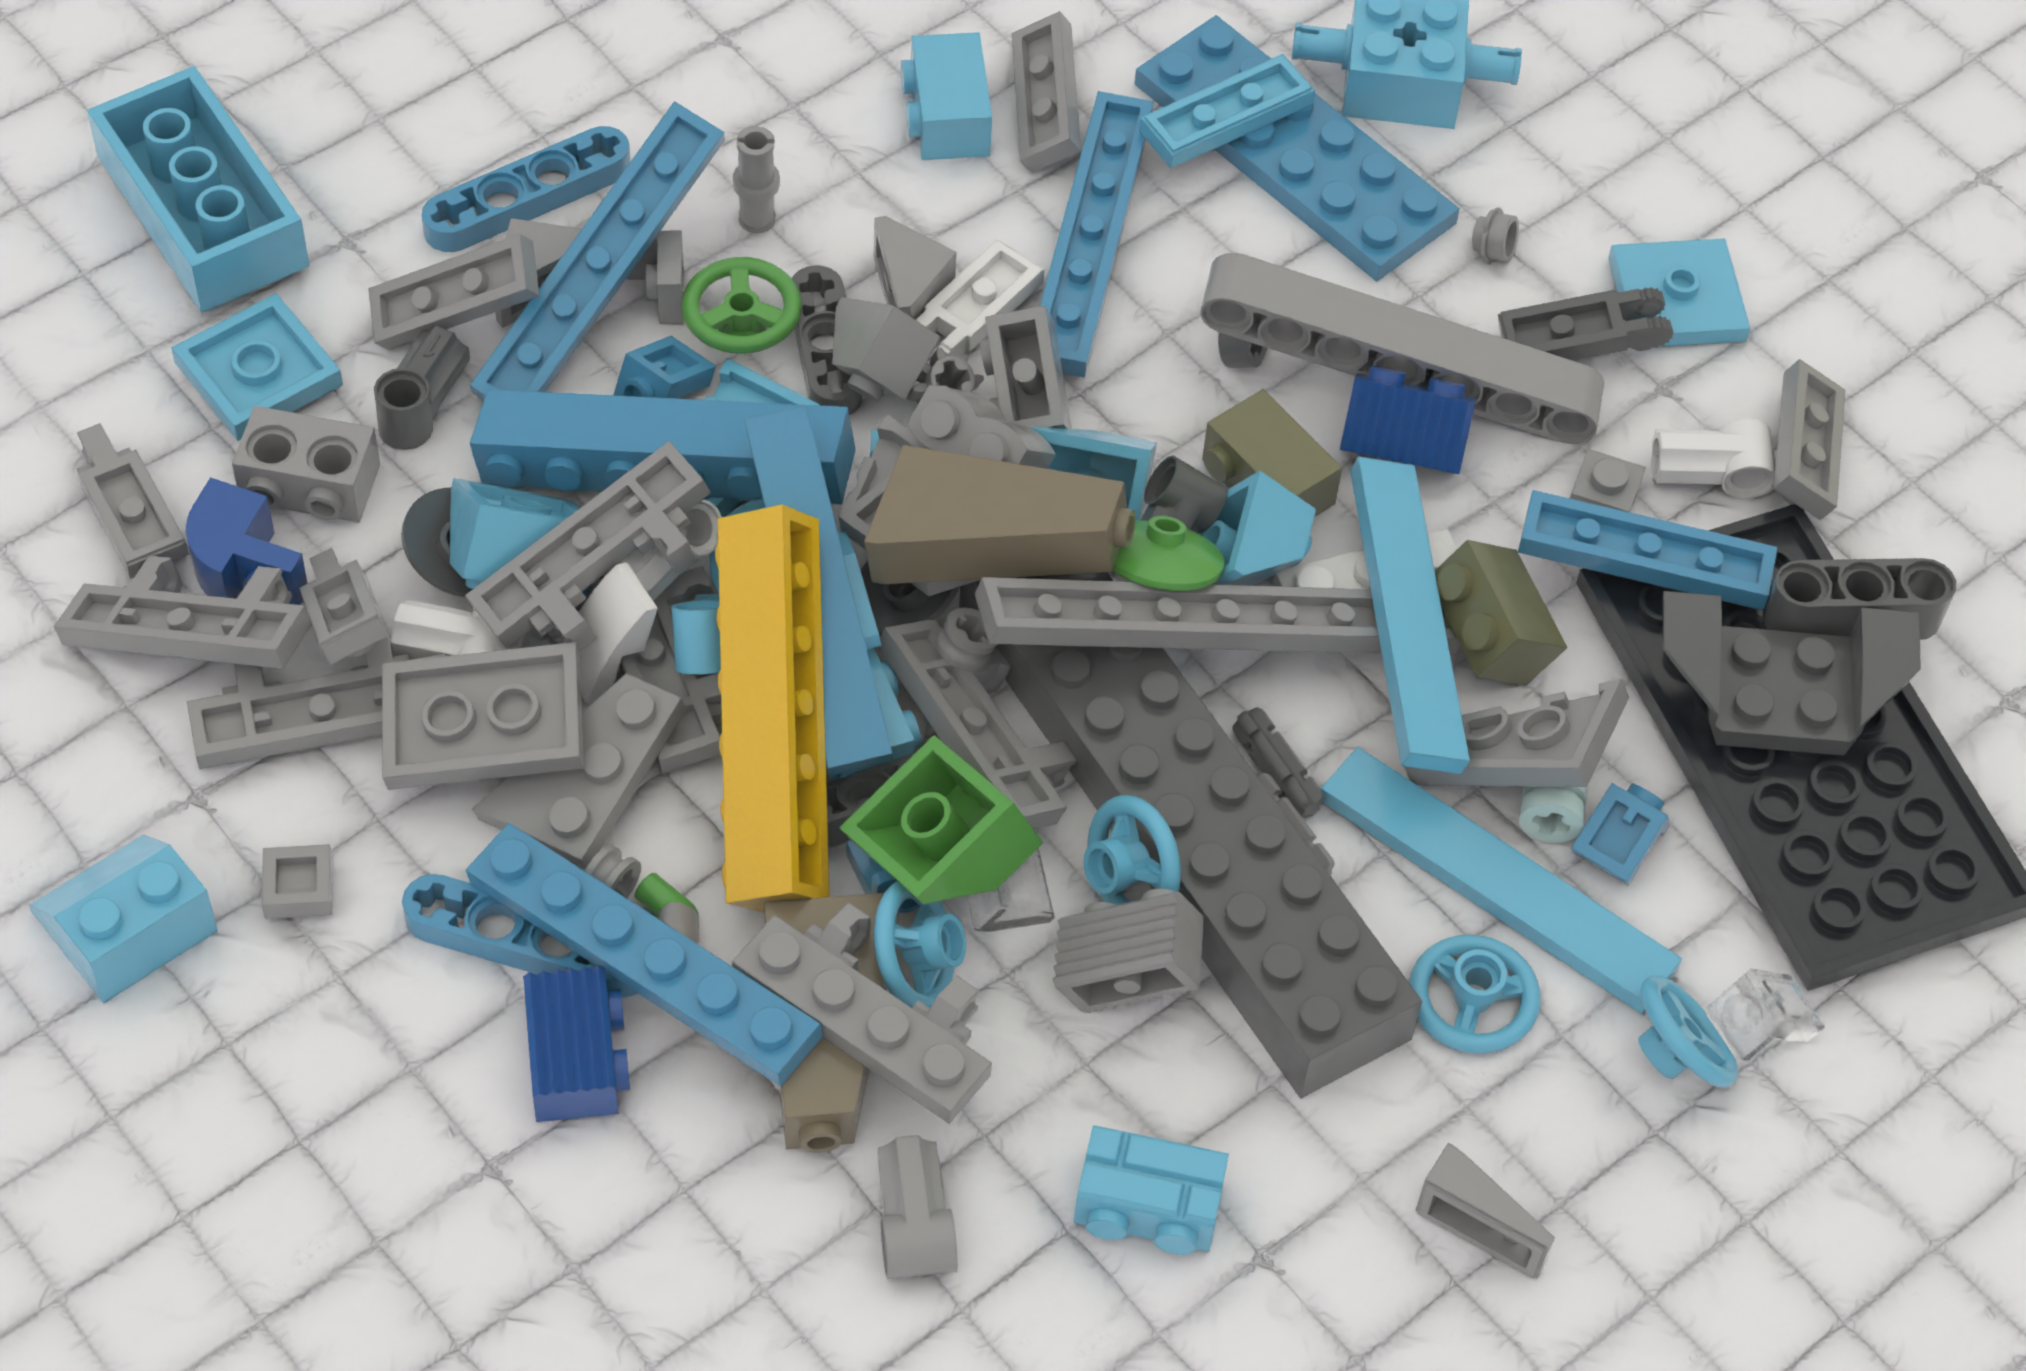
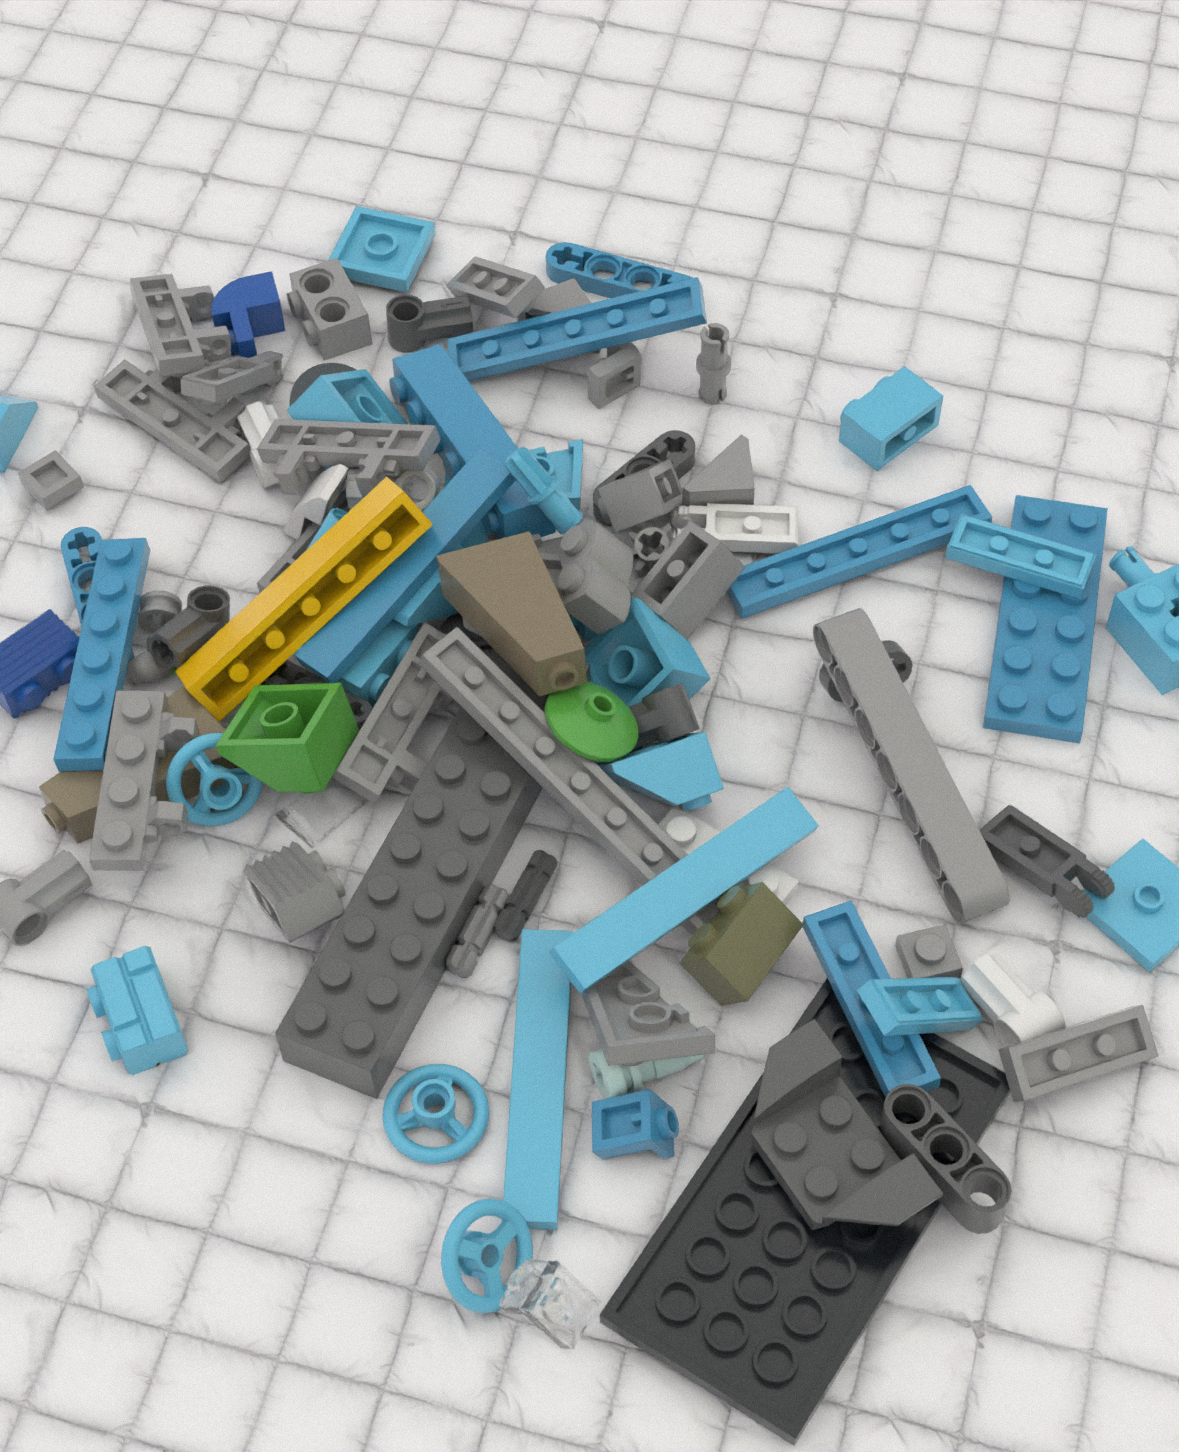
camera: 60 degrees right, 0 degrees up
(127, 502) = (242, 251): light grey hinge -> none
(198, 188) = (469, 145): medium azure brick -> none
(481, 716) = (206, 480): light grey plate -> none
(580, 807) = (222, 554): light grey wing -> none
(663, 371) = (538, 417): dark azure bracket -> none
(677, 852) = (190, 629): none -> dark grey piece
(742, 316) = (621, 423): bright green piece -> none
(848, 404) = (542, 490): none -> medium azure axle
(1046, 92) = (944, 462): light grey plate -> none
(1122, 858) = (358, 846): medium azure piece -> none
(1267, 439) = (756, 749): olive brick -> none
(1408, 420) = (857, 804): blue brick -> none
(1480, 1212) = (257, 1194): light grey slope -> none
(1496, 236) = (1080, 767): light grey plate -> none
(1689, 512) = (920, 1005): none -> medium azure tile

